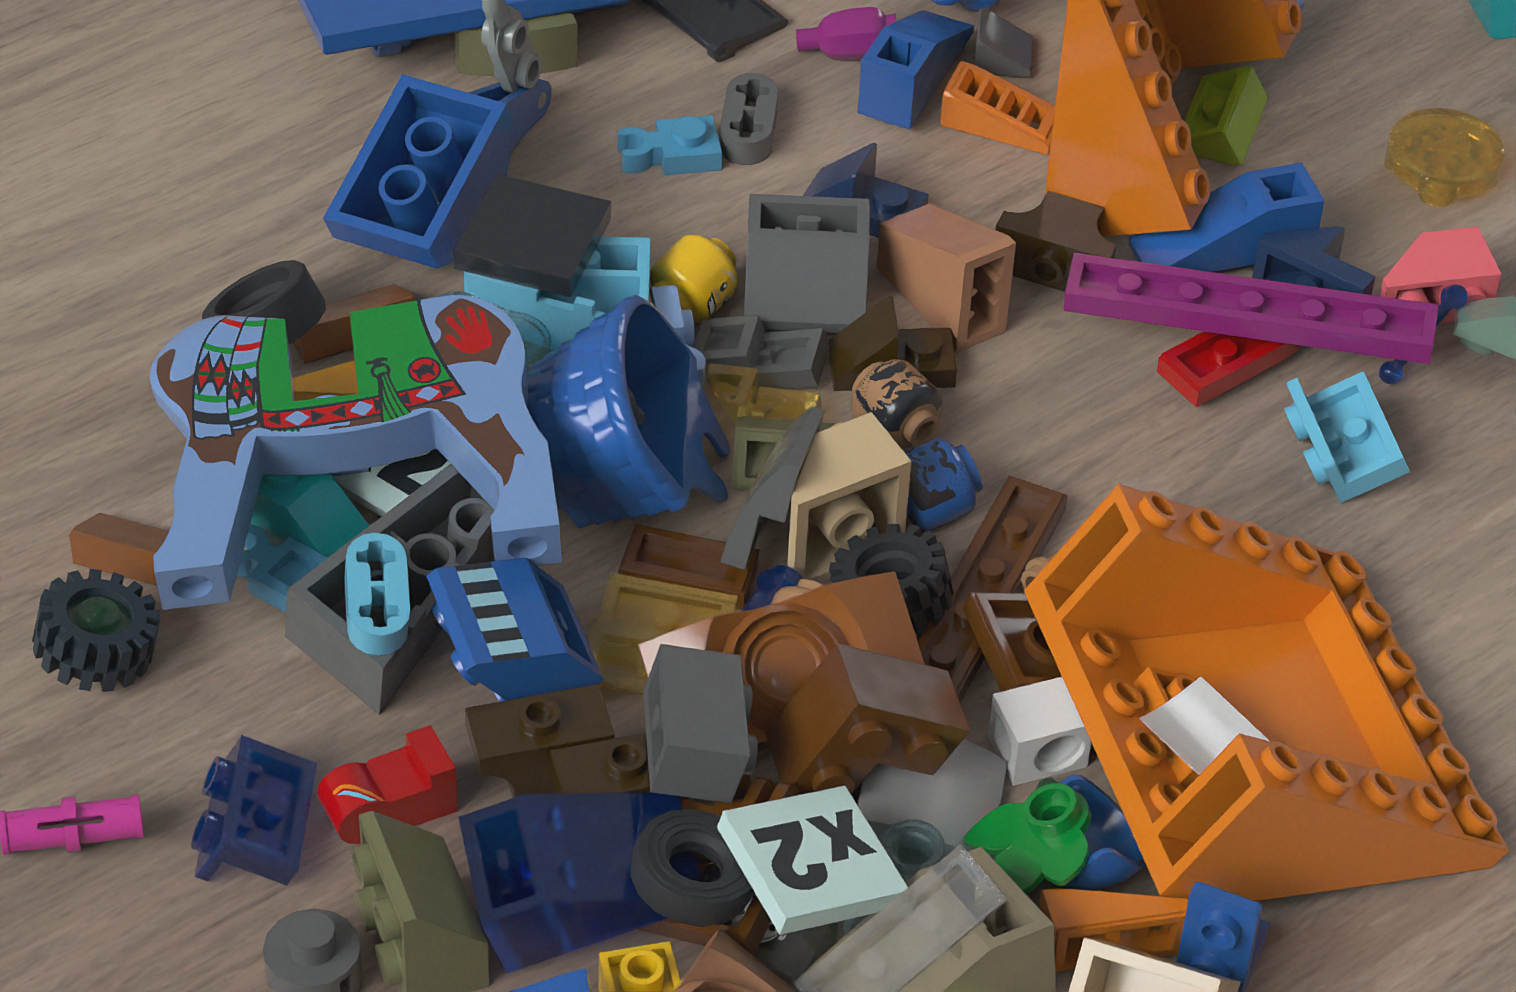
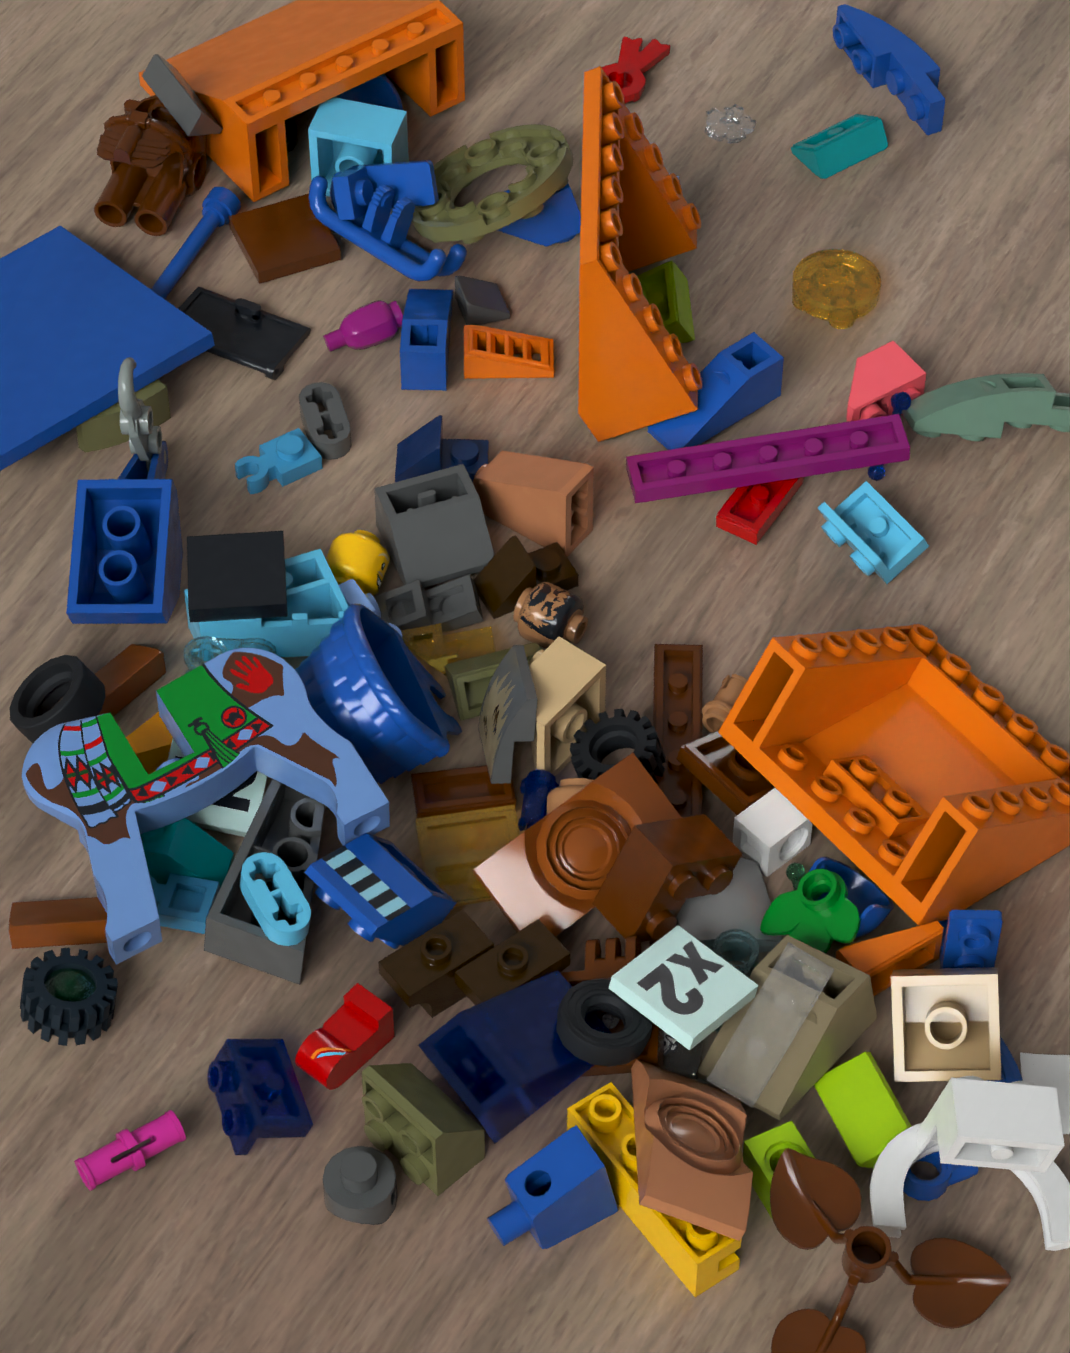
camera: 20 degrees left, 5 degrees up
(698, 724) = (554, 916): dark grey brick -> none
(941, 484) = (622, 666): blue head -> none
(1052, 235) = (604, 444): dark brown brick -> none
(1198, 724) = (898, 795): white sticker -> none
(1309, 259) = (782, 409): dark blue slope -> none

